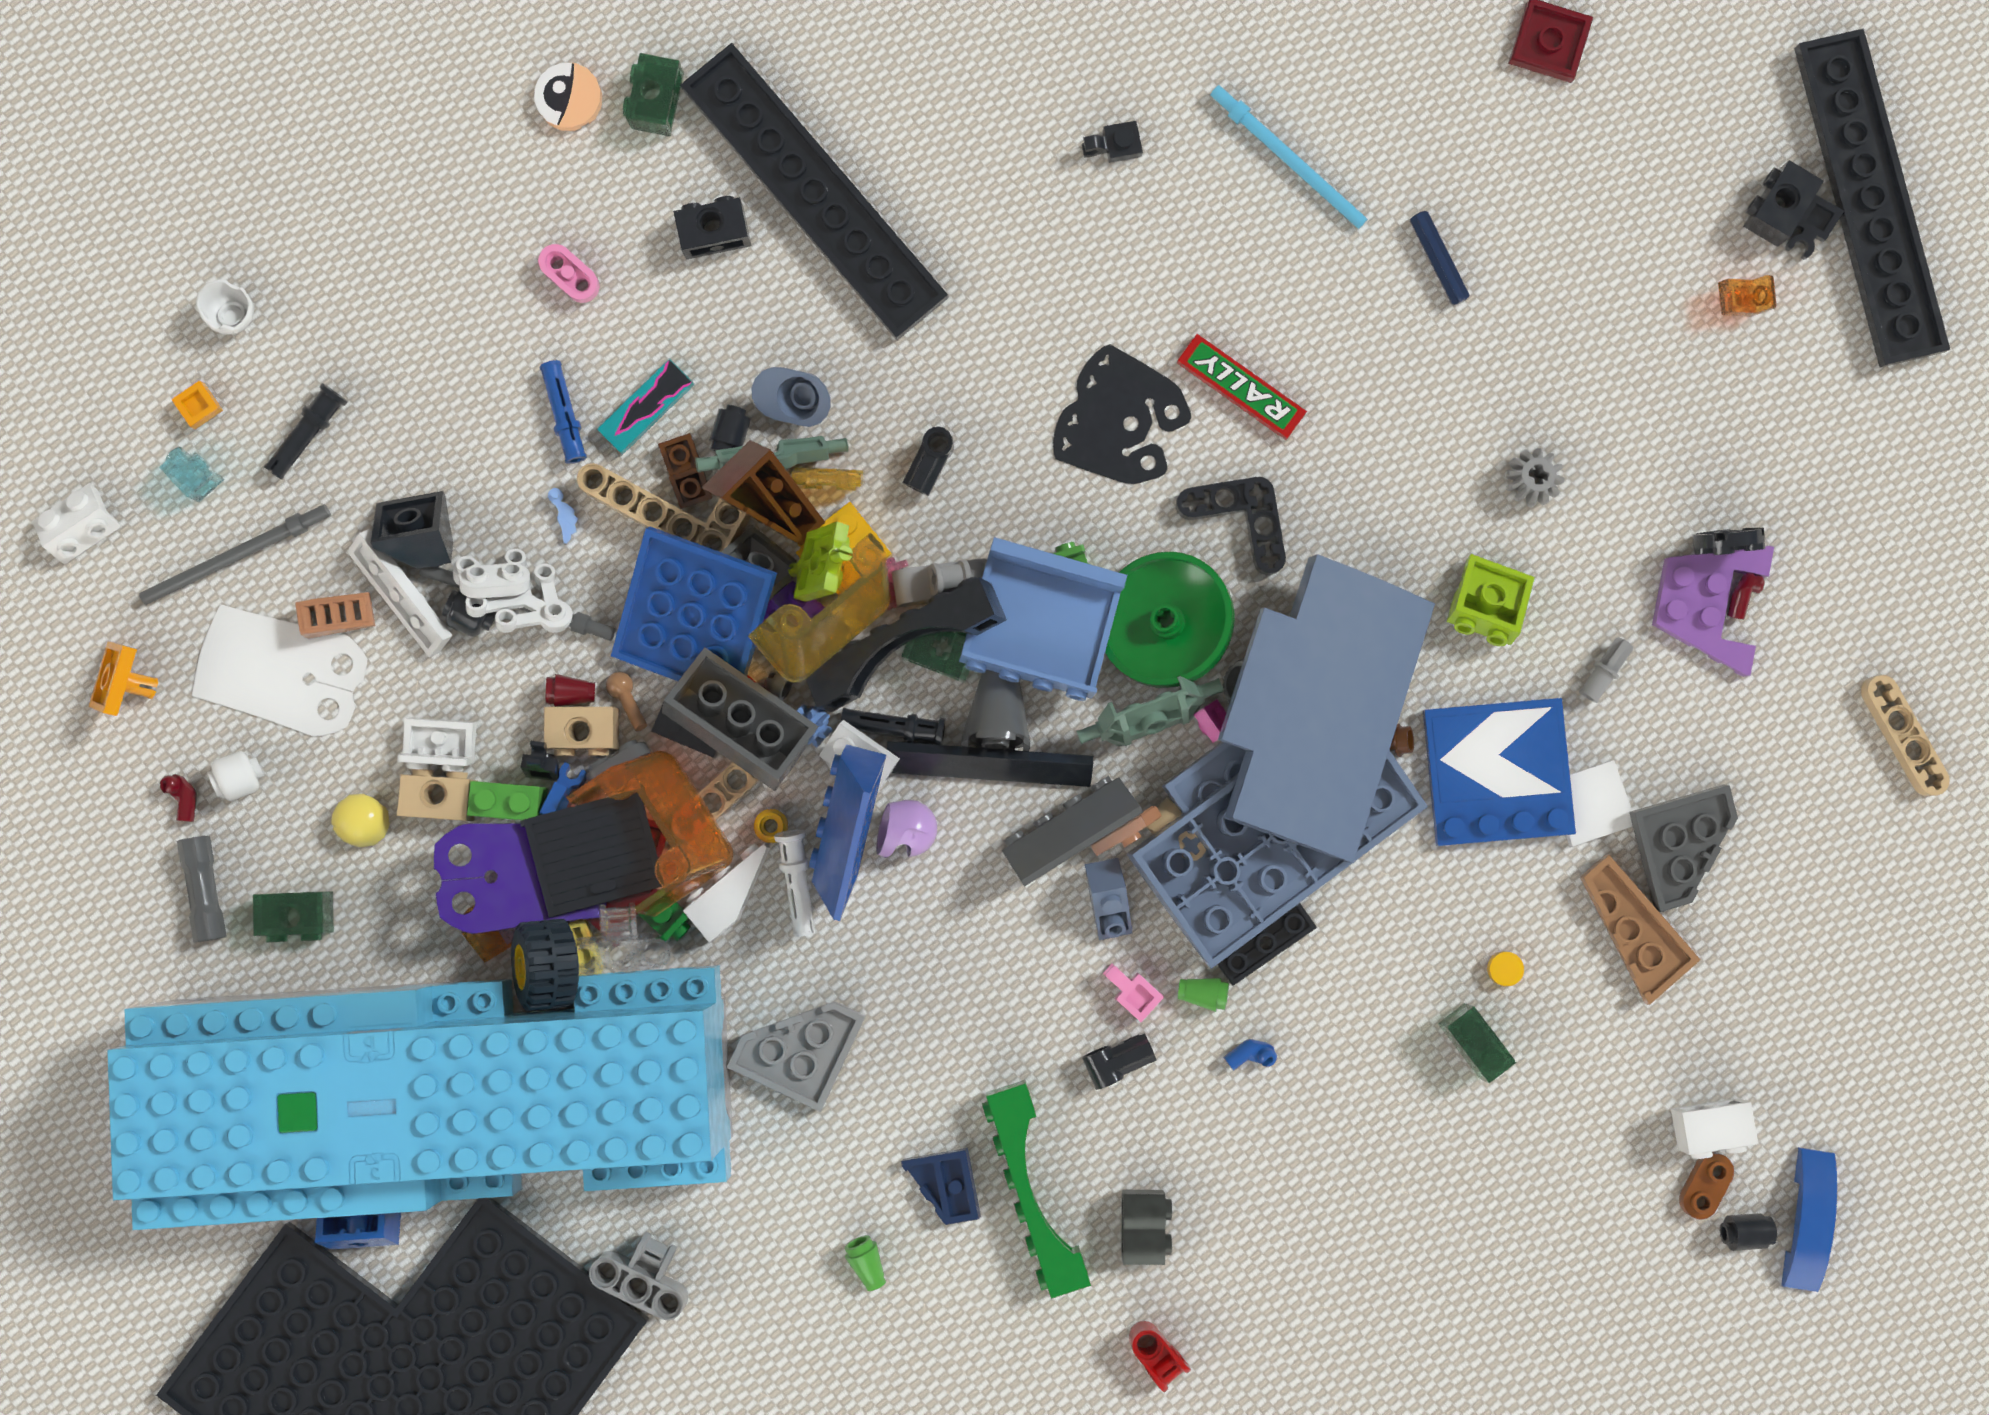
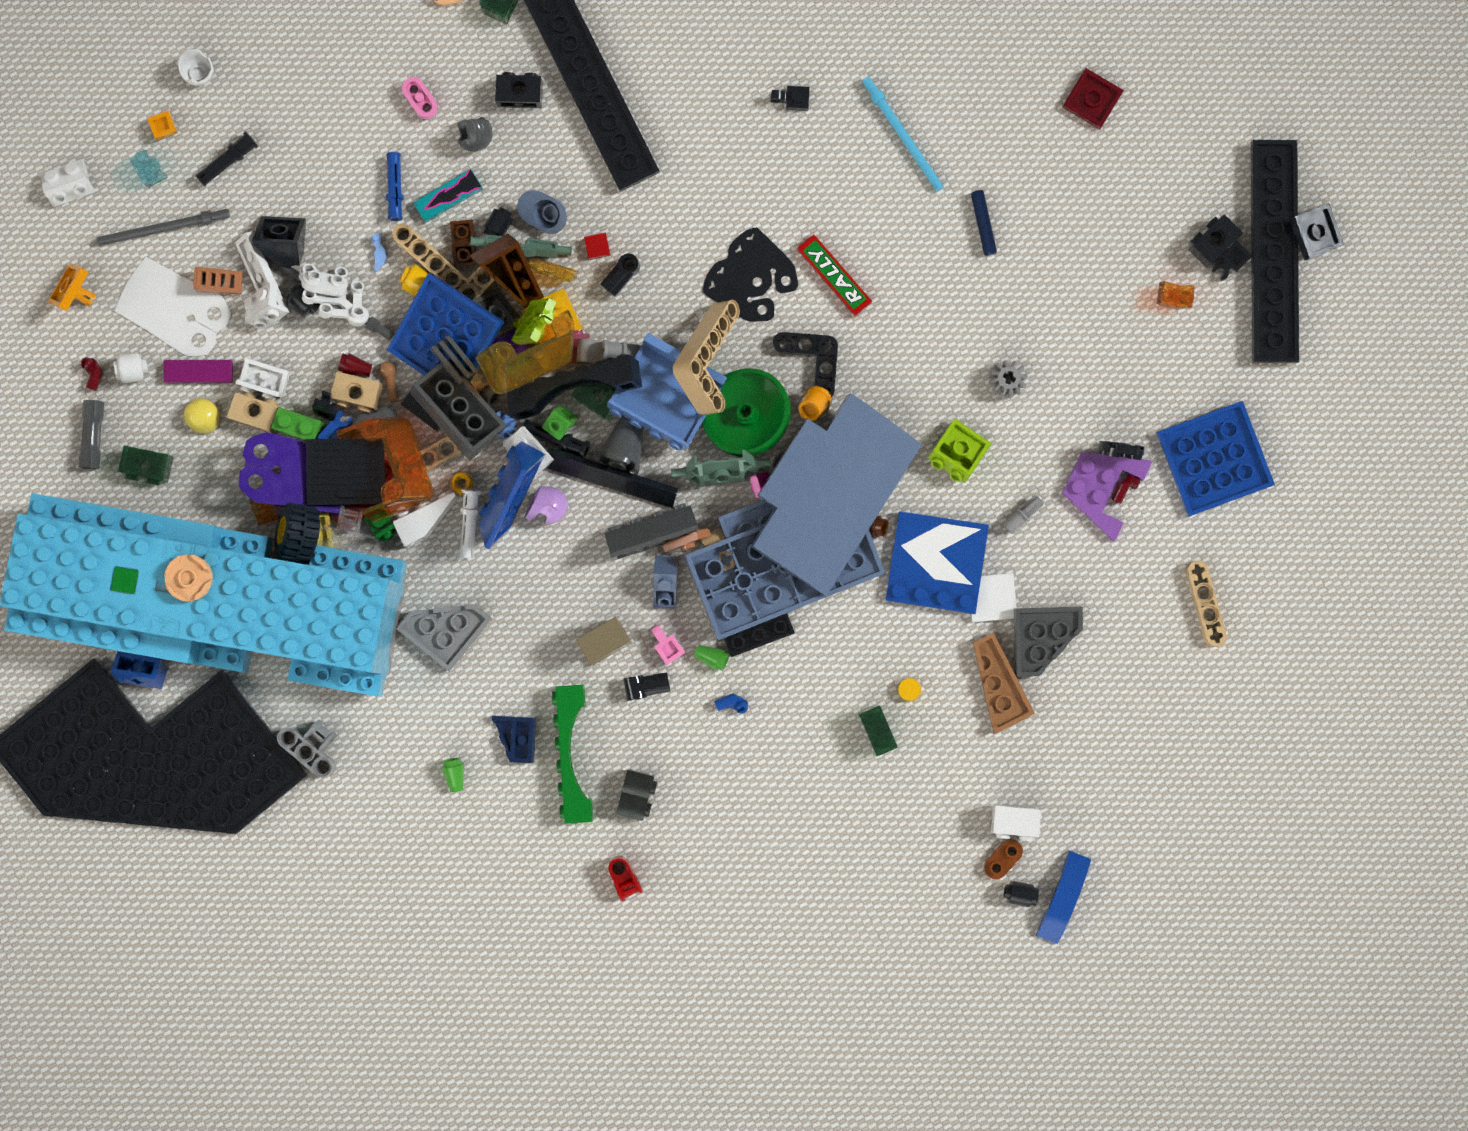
camera: 20 degrees right, 0 degrees up
(338, 755) = (198, 371): none -> magenta tile
(394, 1086) = (188, 578): none -> light nougat tile
(410, 639) = (263, 307): none -> white bracket
(624, 541) = (413, 279): none -> yellow head
(663, 306) = (475, 134): none -> dark grey hair
(725, 638) = (443, 344): none -> dark grey tile
(883, 427) = (597, 246): none -> red tile
(894, 701) = (559, 422): none -> bright green bracket
(1041, 1011) = (604, 641): none -> dark tan piece
(1078, 549) = (697, 354): none -> tan beam
(1262, 581) = (814, 403): none -> light orange piece
(1864, 520) = (1215, 458): none -> blue plate
(1927, 154) = (1316, 231): none -> plate

